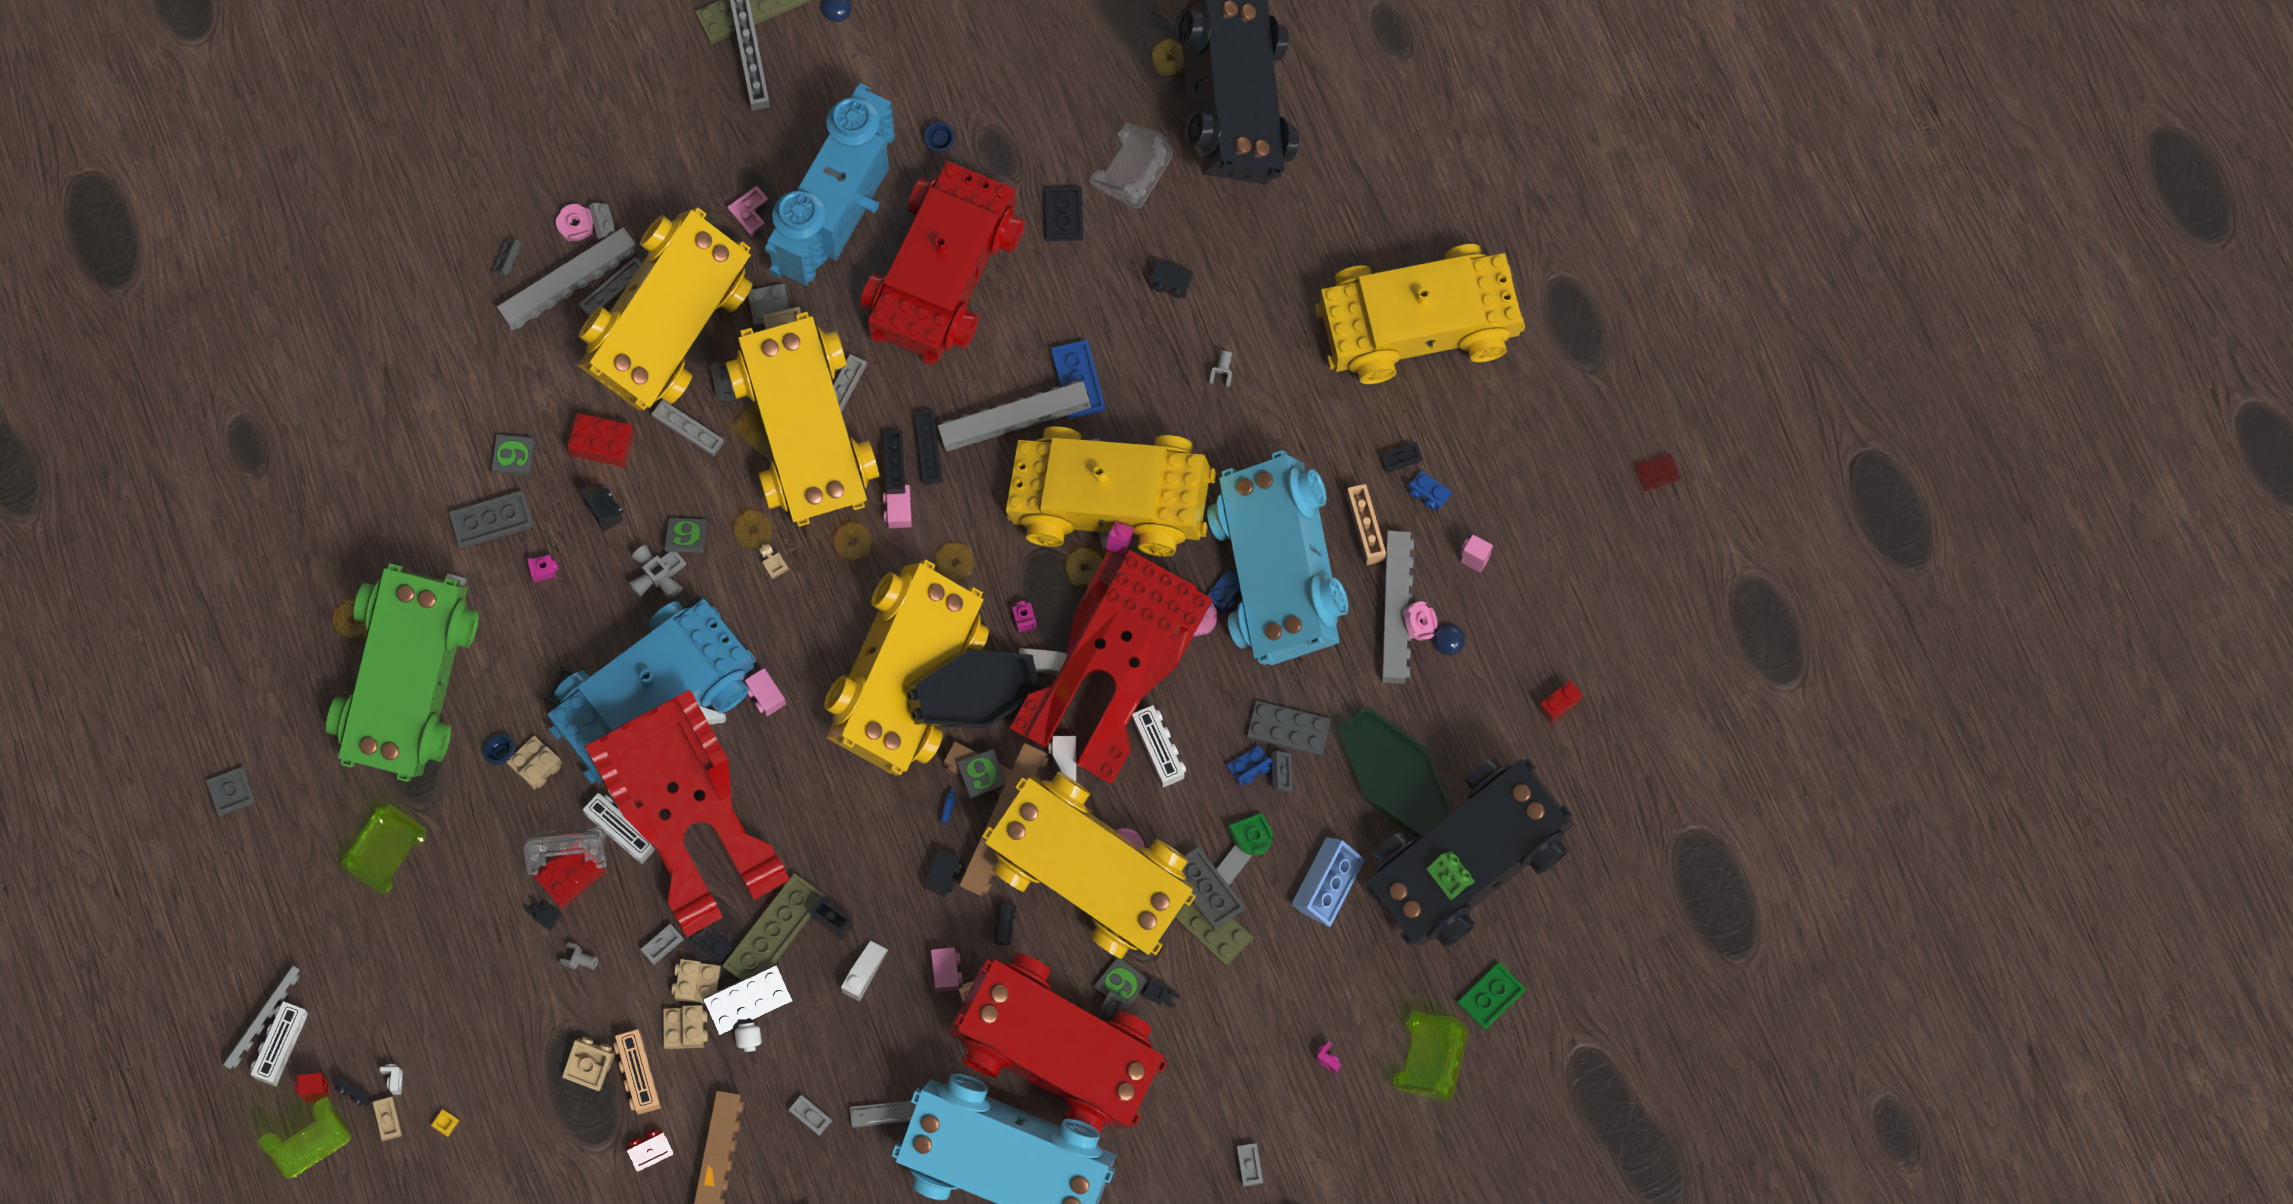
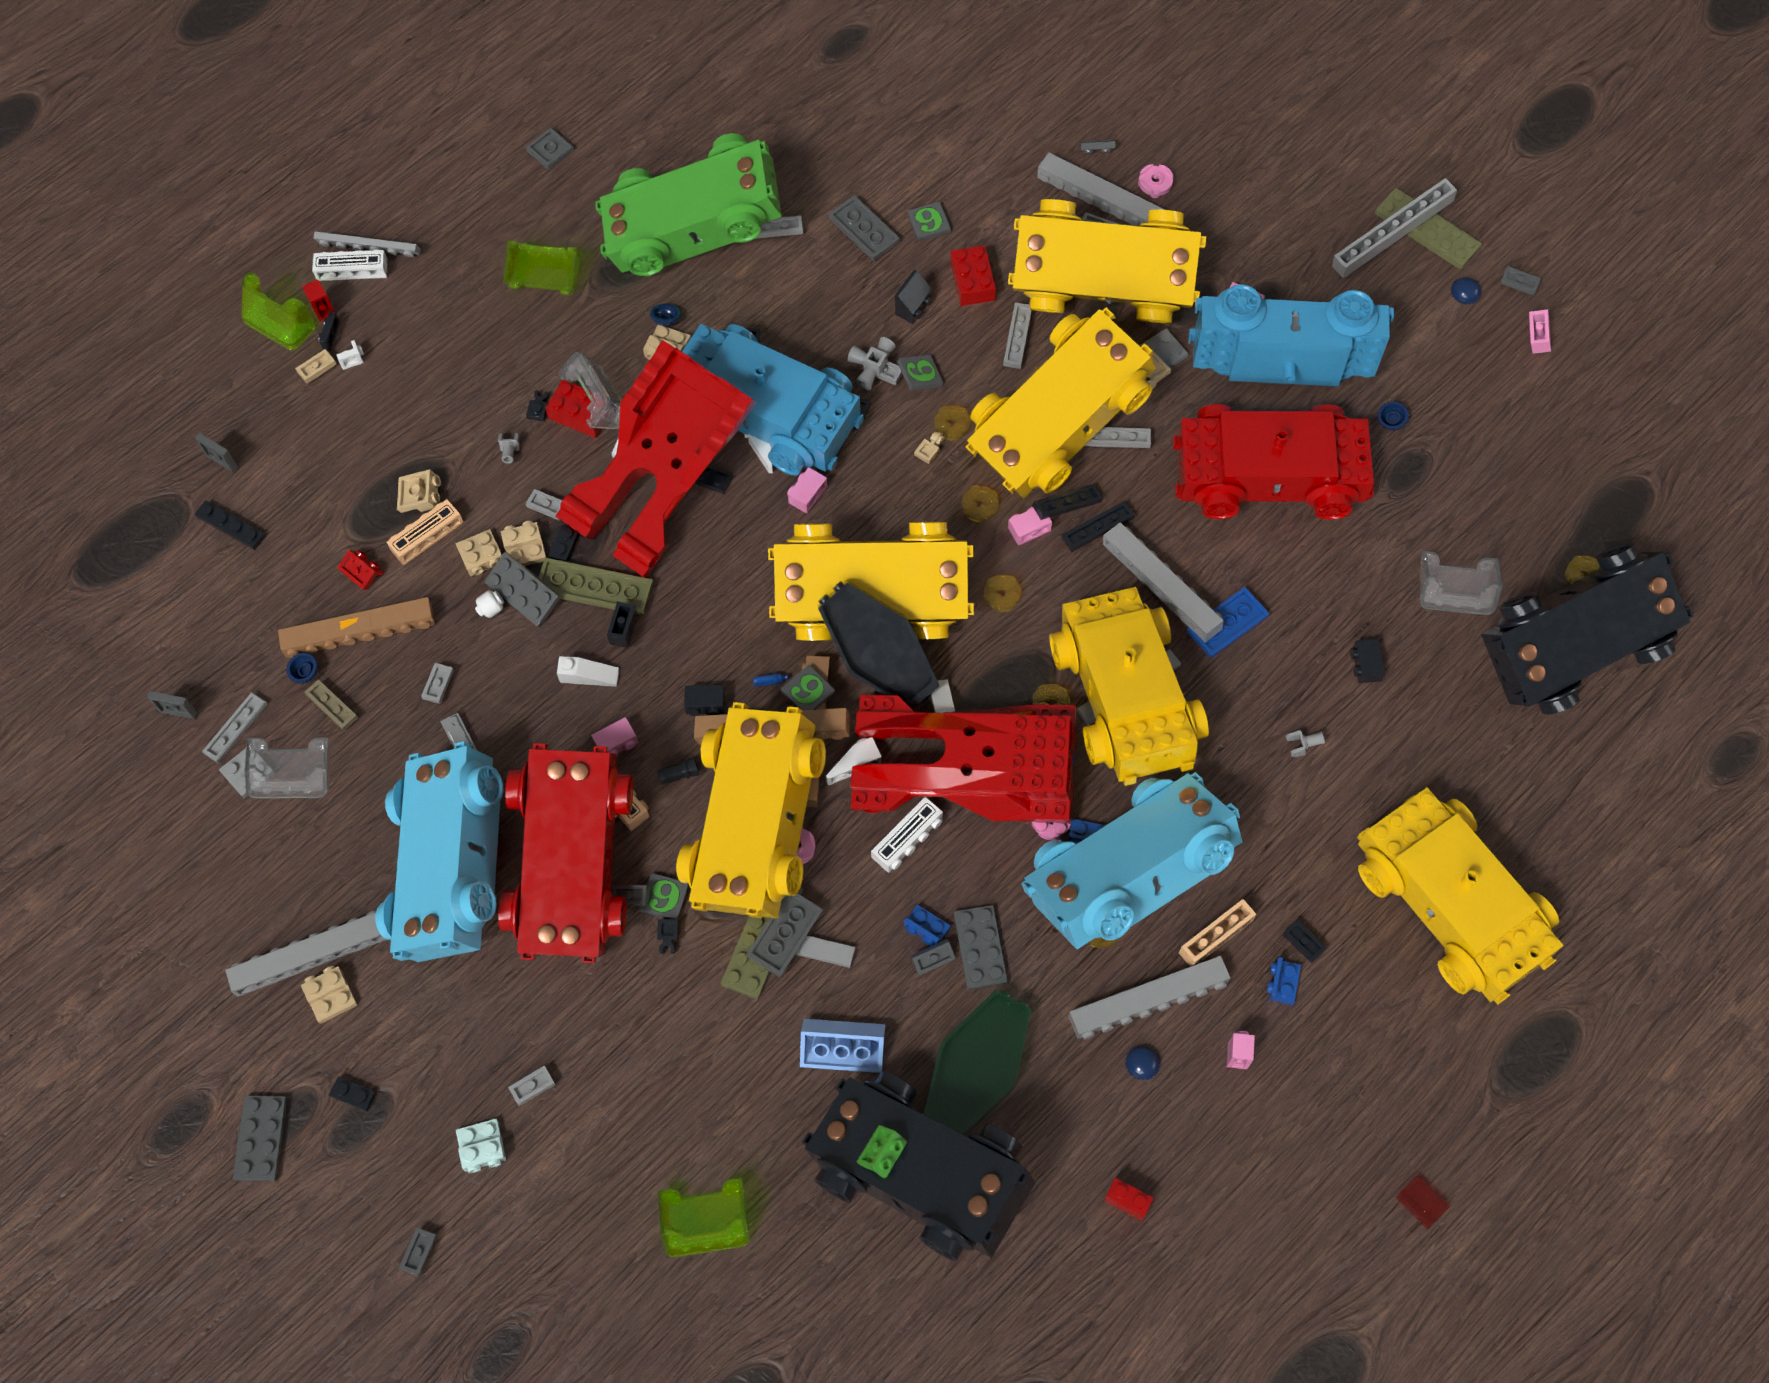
camera: 70 degrees right, 5 degrees down
(444, 1123) = (329, 409): yellow tile -> none
(541, 574) = (838, 280): dark pink brick -> none
(602, 220) = (1169, 196): light grey plate -> none
(1026, 622) = (974, 674): dark pink brick -> none
(1063, 214) = (1380, 547): black tile -> none
(1119, 538) = (1082, 706): dark pink brick -> none
(1252, 834) = (858, 955): green tile -> none
(1328, 1061) = (662, 1120): dark pink bracket -> none
(1412, 617) = (1142, 1014): bright pink plate -> none
(1491, 996) = (794, 1254): green tile -> none

